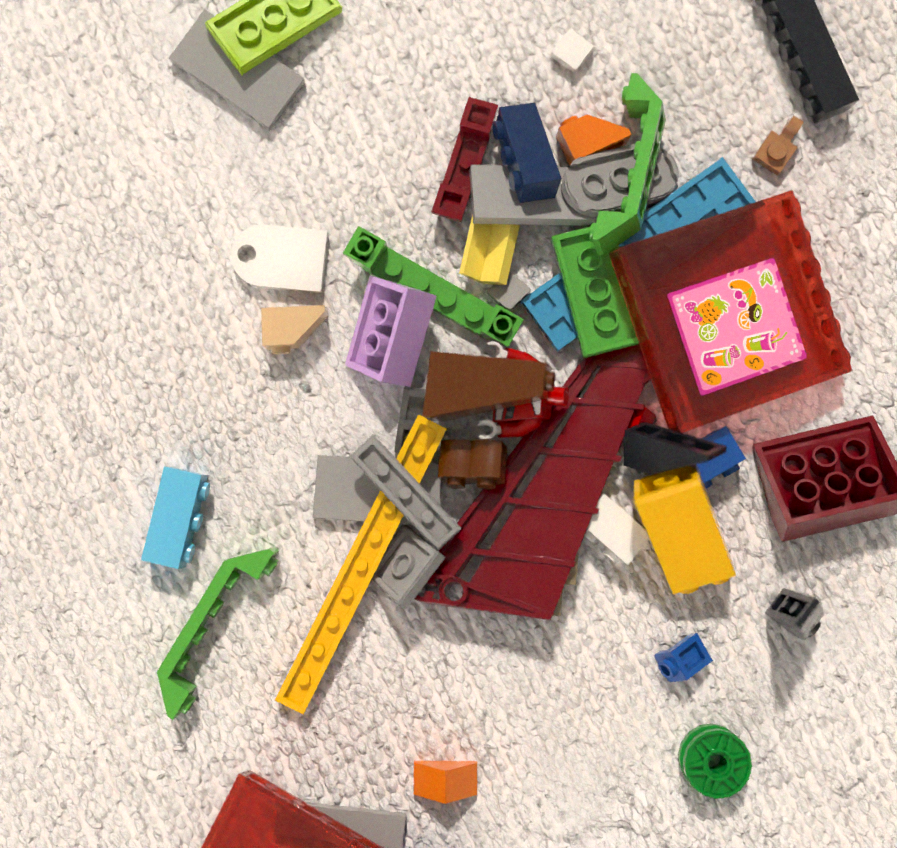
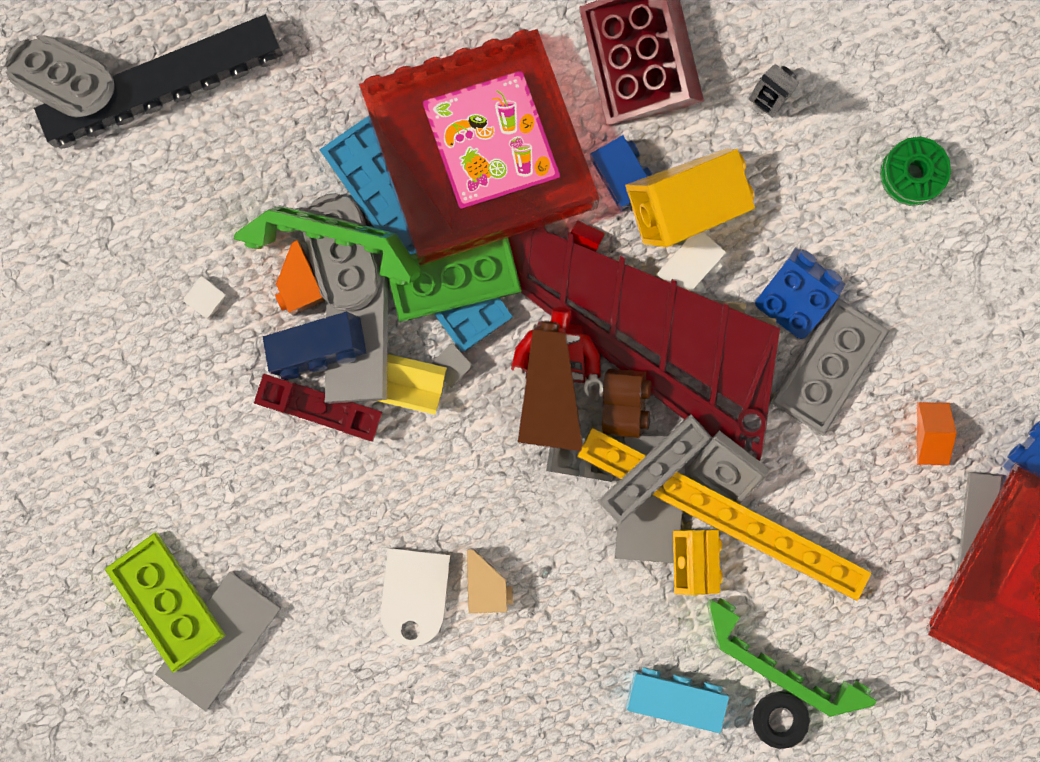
camera: 85 degrees left, 0 degrees up
(139, 613) = (800, 720): none -> black tyre
(313, 536) = (697, 562): none -> yellow brick
(390, 331) = (493, 484): lavender slope -> none
(451, 301) = (450, 441): bright green slope -> none
(512, 672) = (829, 366): none -> light grey tile
(586, 641) = (800, 293): none -> blue bracket
(659, 449) = (614, 219): black slope -> none
(683, 659) = (817, 199): blue bracket -> none
(778, 149) = (310, 94): medium nougat plate -> none

